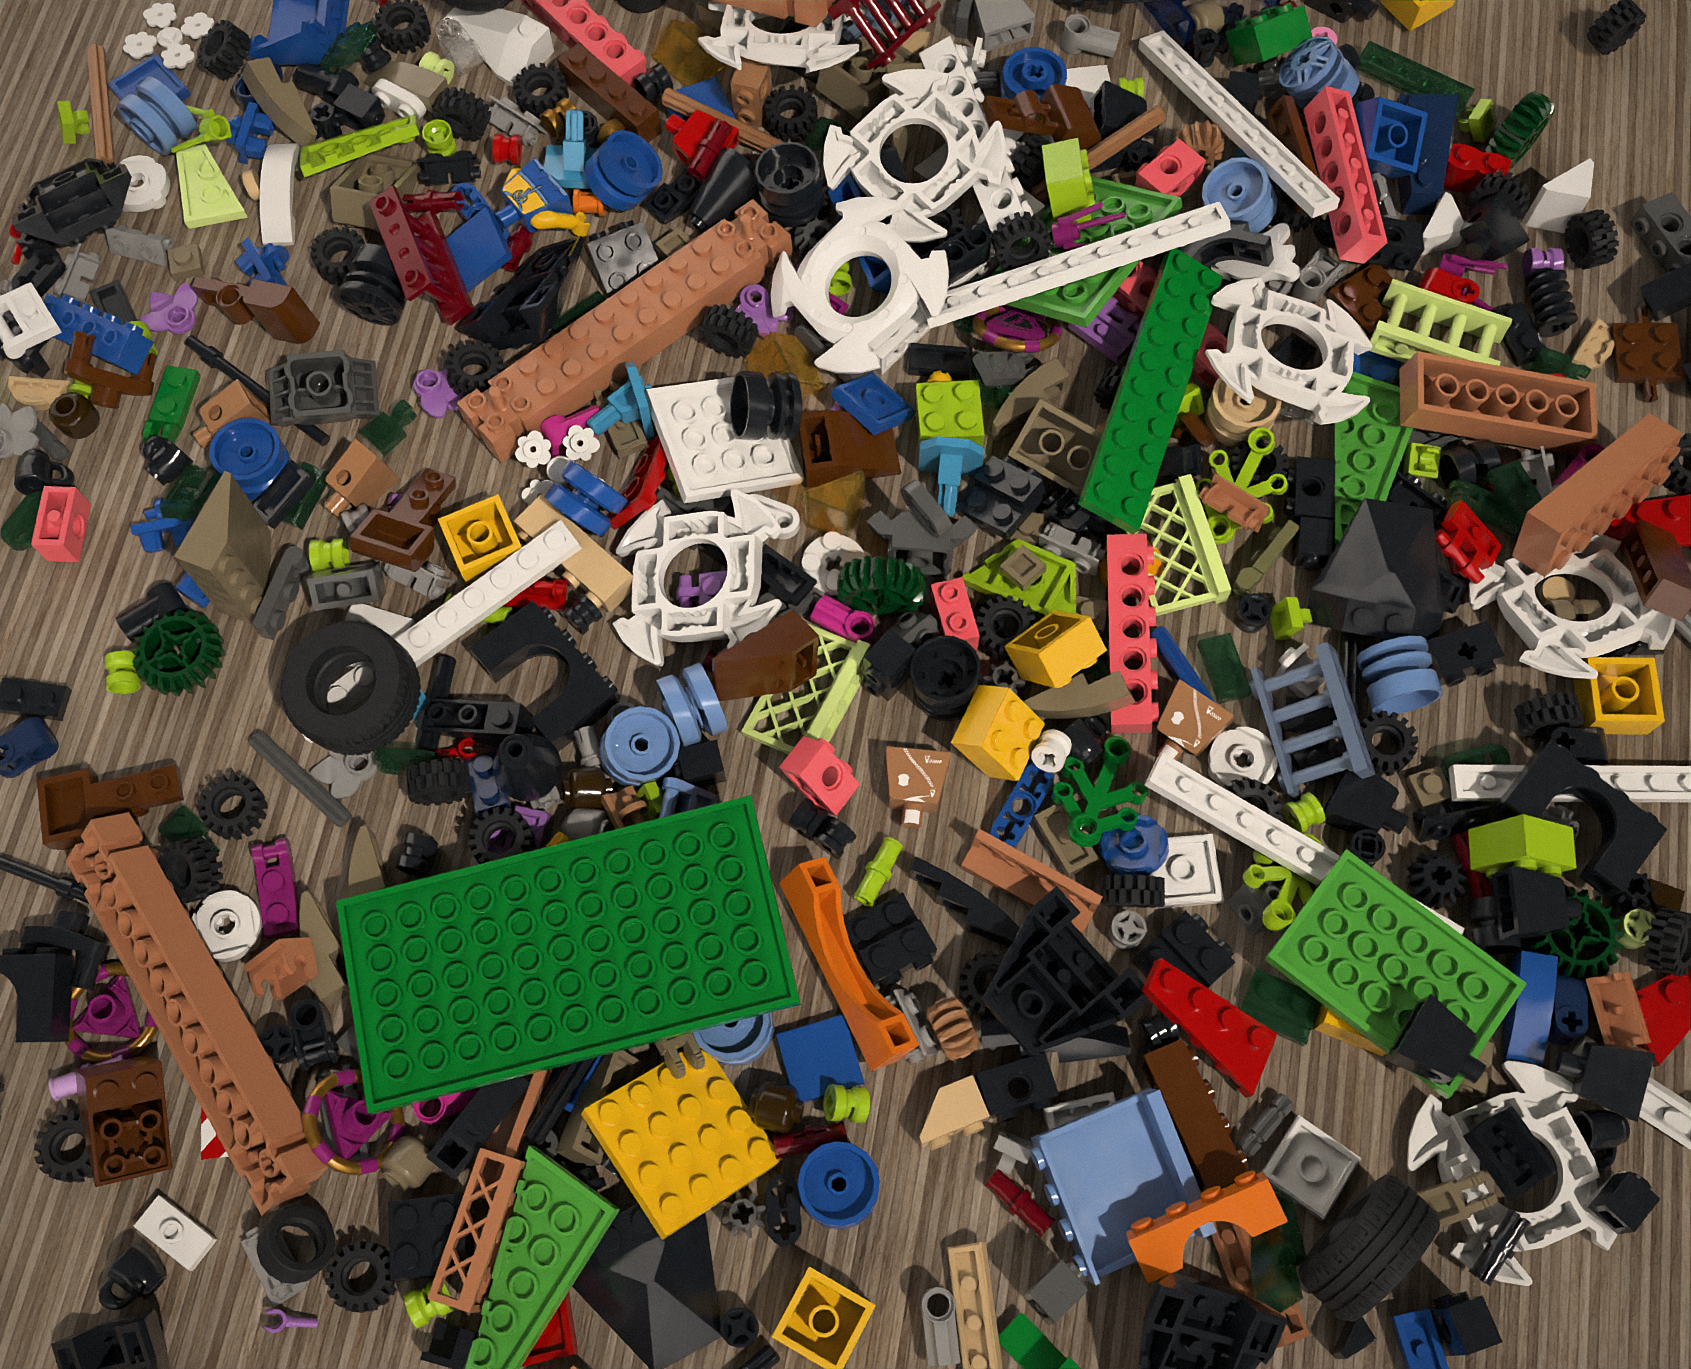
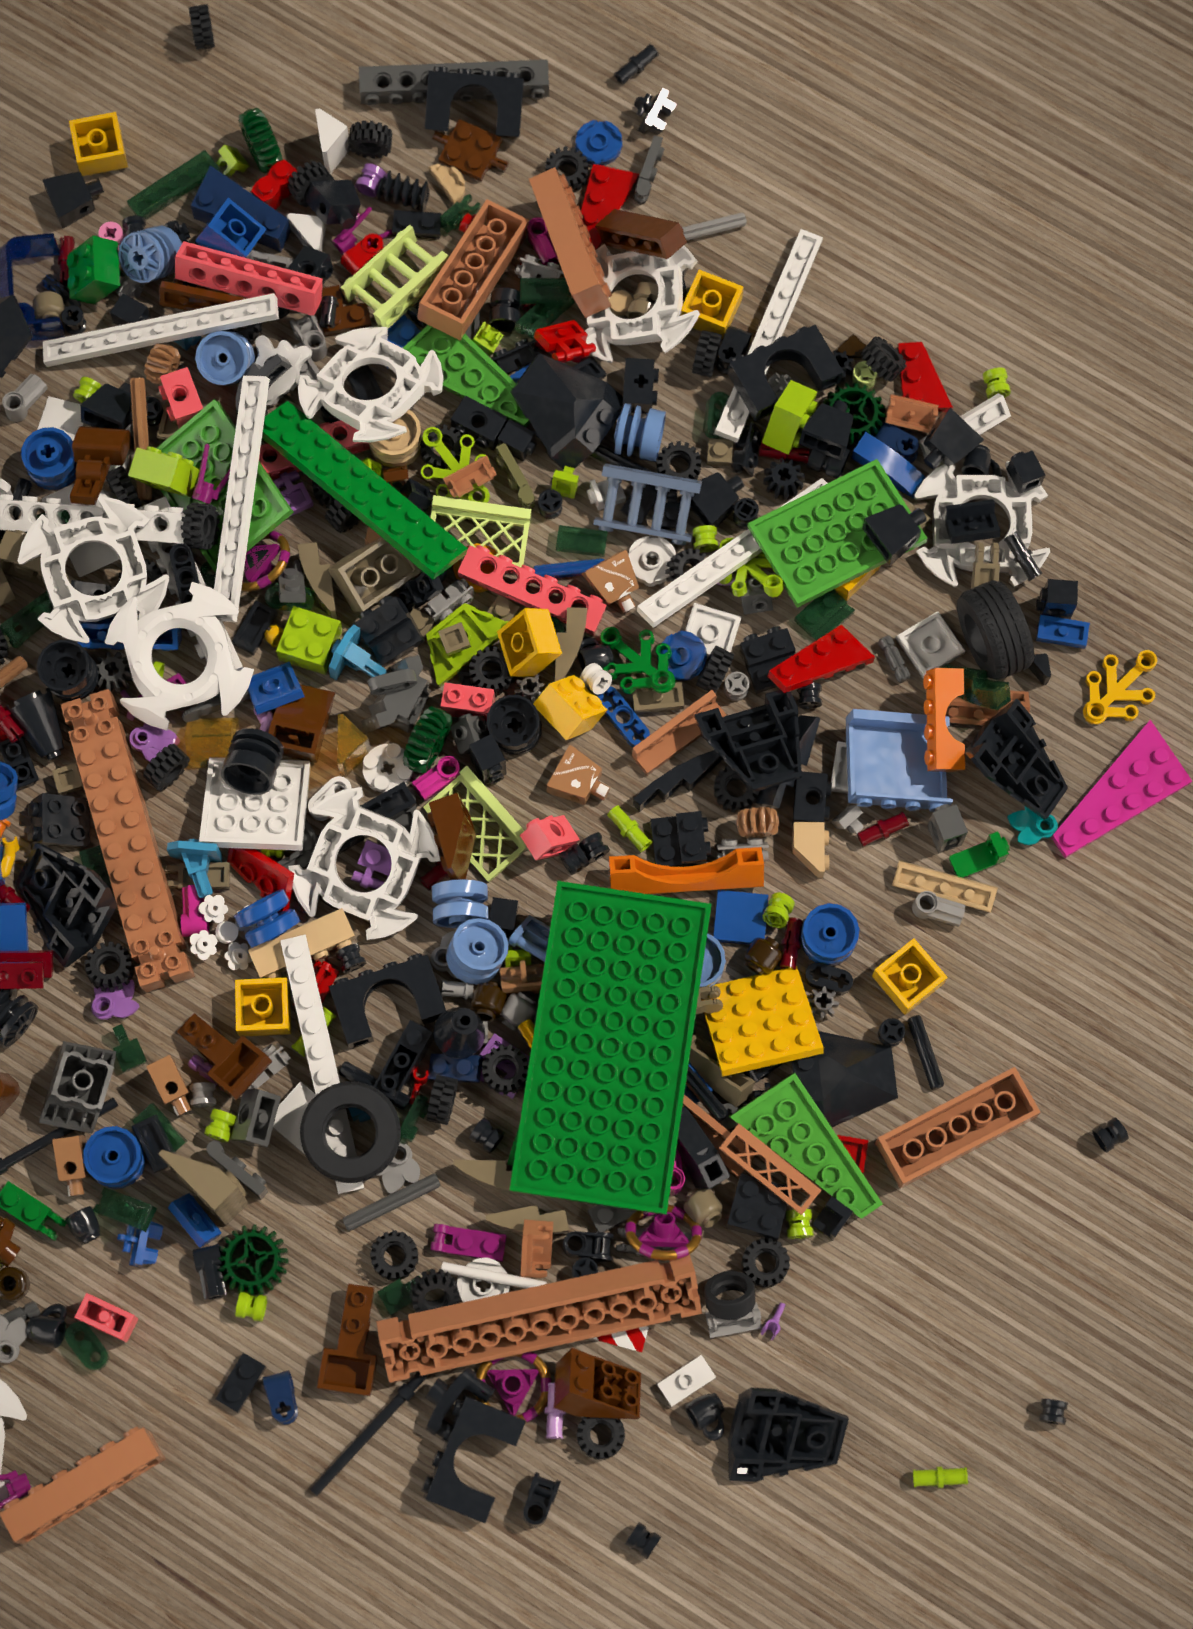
camera: 70 degrees left, 5 degrees up
(234, 931) = (491, 1276): none -> white bar
(1192, 1110) = (884, 695): reddish brown brick -> none
(1363, 276) = (328, 311): none -> black pin

